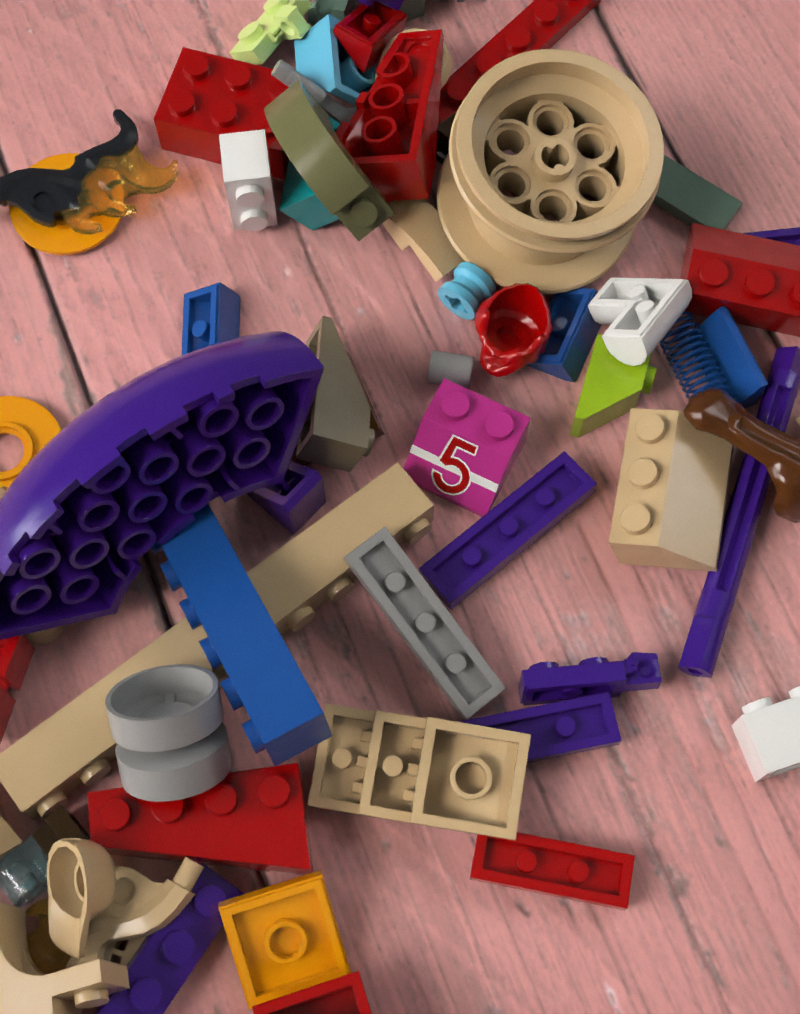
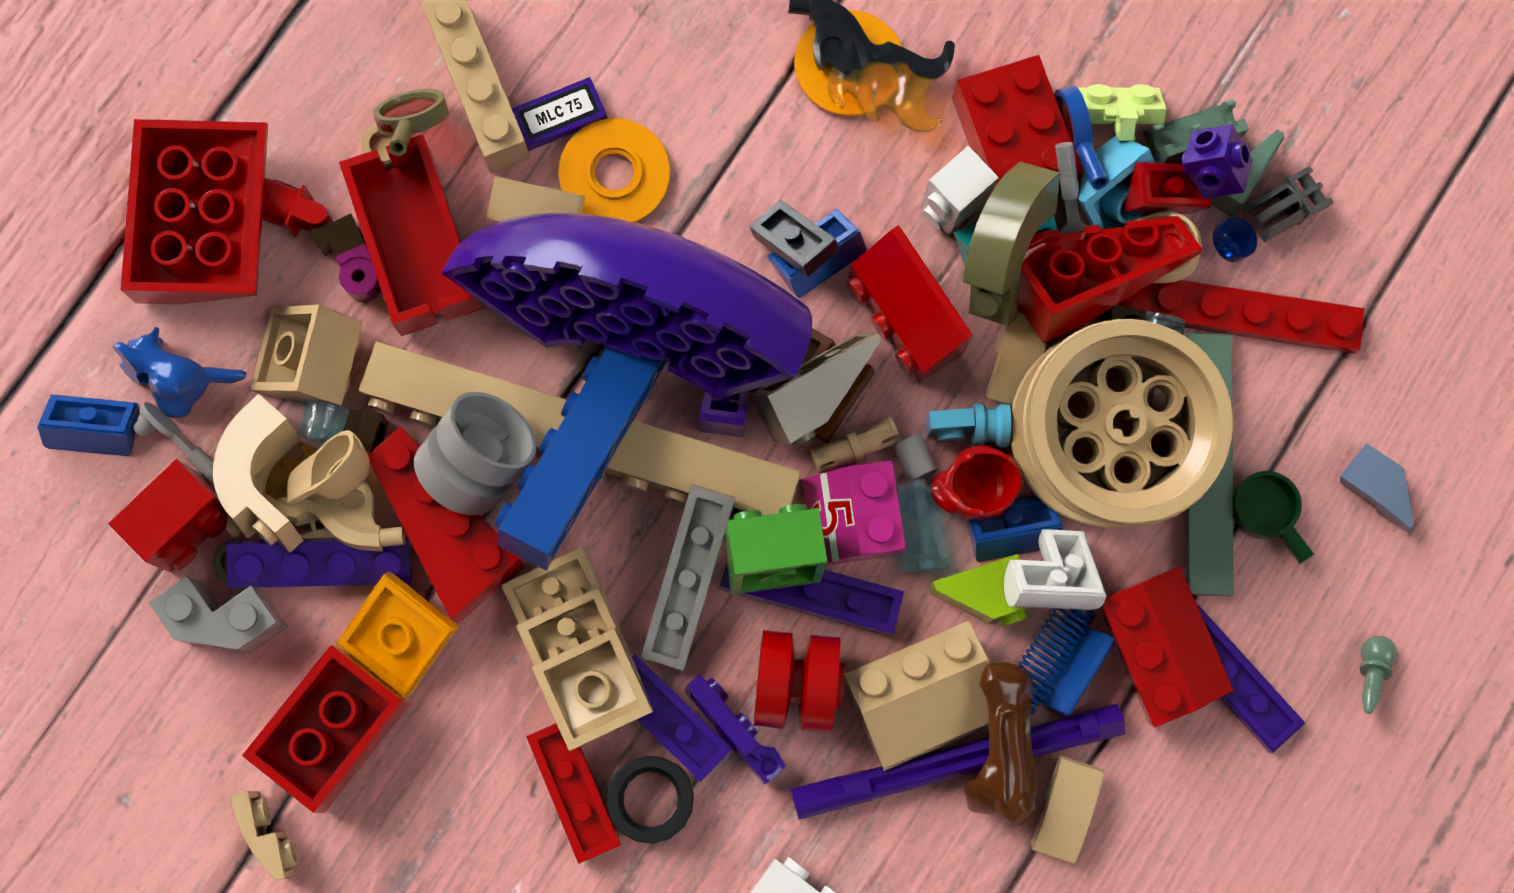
camera: 50 degrees right, 10 degrees up
(184, 332) = (794, 238): none -> plate
(265, 52) = (1079, 128): none -> blue piece
(310, 275) = (908, 305): none -> red slope
(404, 410) = (855, 445): none -> tan pin
(442, 321) = (950, 424): none -> medium azure plate
(446, 16) = (1234, 239): none -> clear blue tile
(456, 521) = (774, 549): none -> bright green brick
(542, 409) = (921, 528): none -> clear light blue hinge
(588, 587) = (809, 682): none -> red wheel
(630, 768) = (616, 806): none -> black tyre
(692, 130) = (1269, 507): none -> dark green piece
(725, 41) = (1382, 484): none -> sand blue slope

